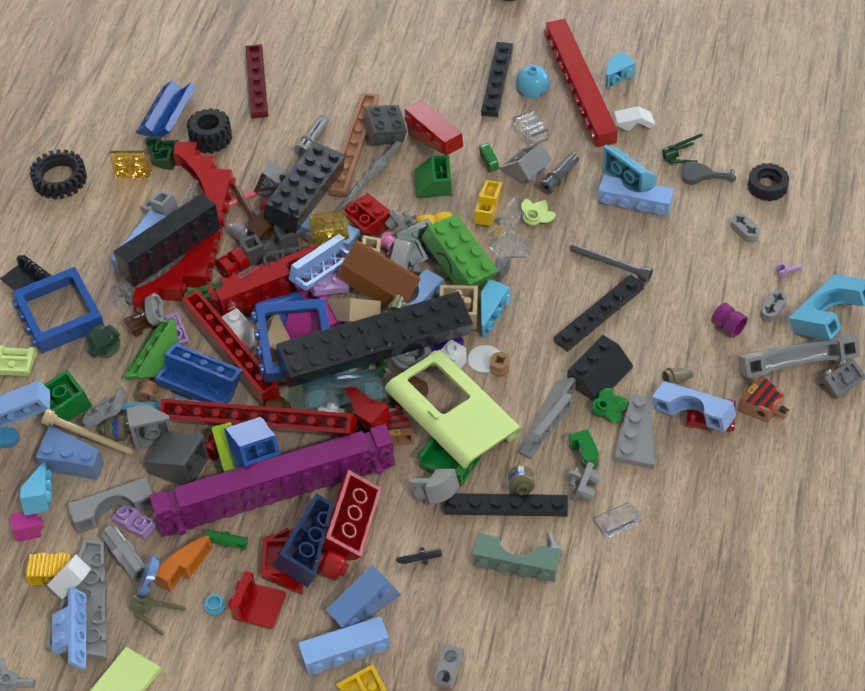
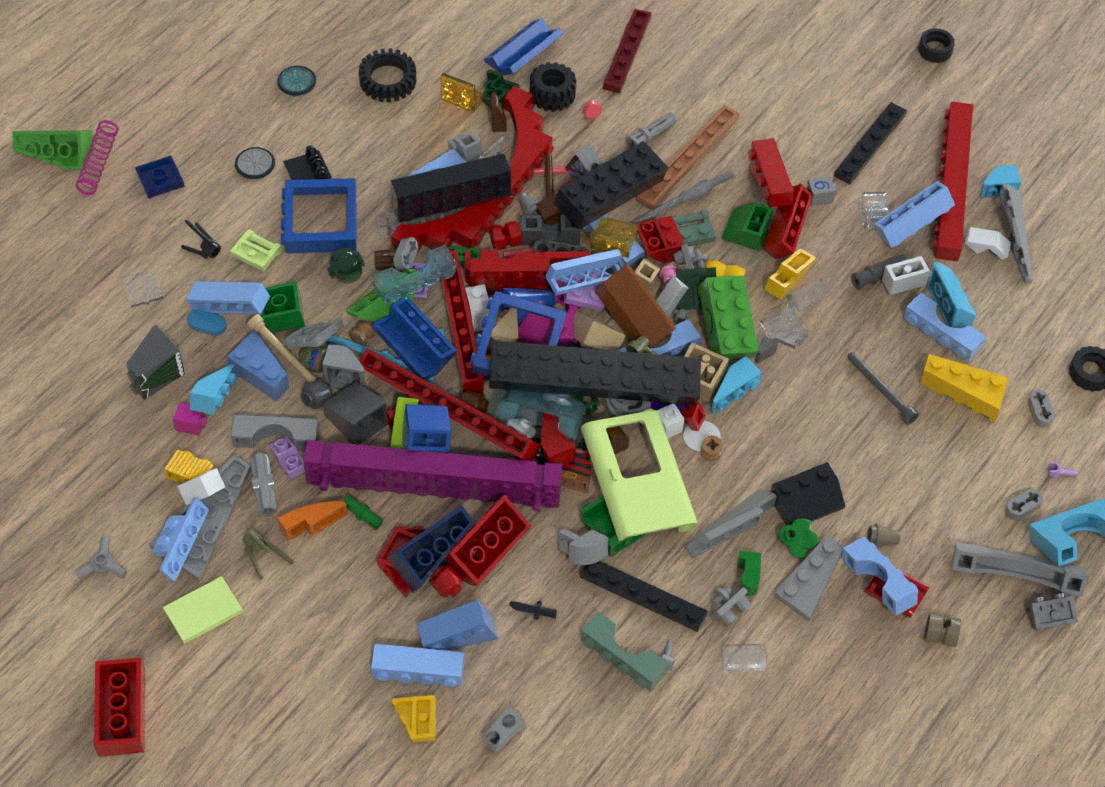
camera: 20 degrees right, 5 degrees up
(132, 457) = (316, 394): none -> dark grey head
(148, 576) = (271, 518): medium blue tile -> none
(159, 336) = (393, 284): none -> clear light blue arch
(173, 171) = (498, 117): none -> reddish brown slope
(214, 604) = (320, 571): medium azure plate -> none
(252, 137) = (592, 109): none -> coral tile
(255, 602) = (358, 586): red bracket -> none
(384, 124) = (727, 148): dark grey brick -> none
(396, 199) = (696, 233): none -> sand green plate
(467, 165) = (788, 224): none -> red brick
(471, 344) = (693, 416): none -> red tile
(478, 129) = (822, 190): none -> light grey brick
(488, 157) = (816, 225): green beam -> none
(521, 480) = (669, 576): olive head -> none
(527, 163) = (851, 247): light grey slope -> none
(532, 81) = (904, 160): medium azure cylinder -> none
(536, 212) = (835, 302): yellowish green plate -> none
(566, 117) = (914, 214): none -> light blue brick
(583, 167) = (905, 275): none -> white brick
(598, 313) = (840, 436): black plate -> none
(643, 90) = (1017, 234): none -> light grey wedge
(672, 151) = (1007, 296): dark green plant -> none
(677, 232) = (966, 385): none -> yellow wedge
(696, 172) = (1022, 326): dark grey piece -> none
(727, 318) = (968, 500): magenta wheel -> none
(763, 401) = (956, 599): torso -> none
(769, 427) = (942, 630): none -> dark tan wheel

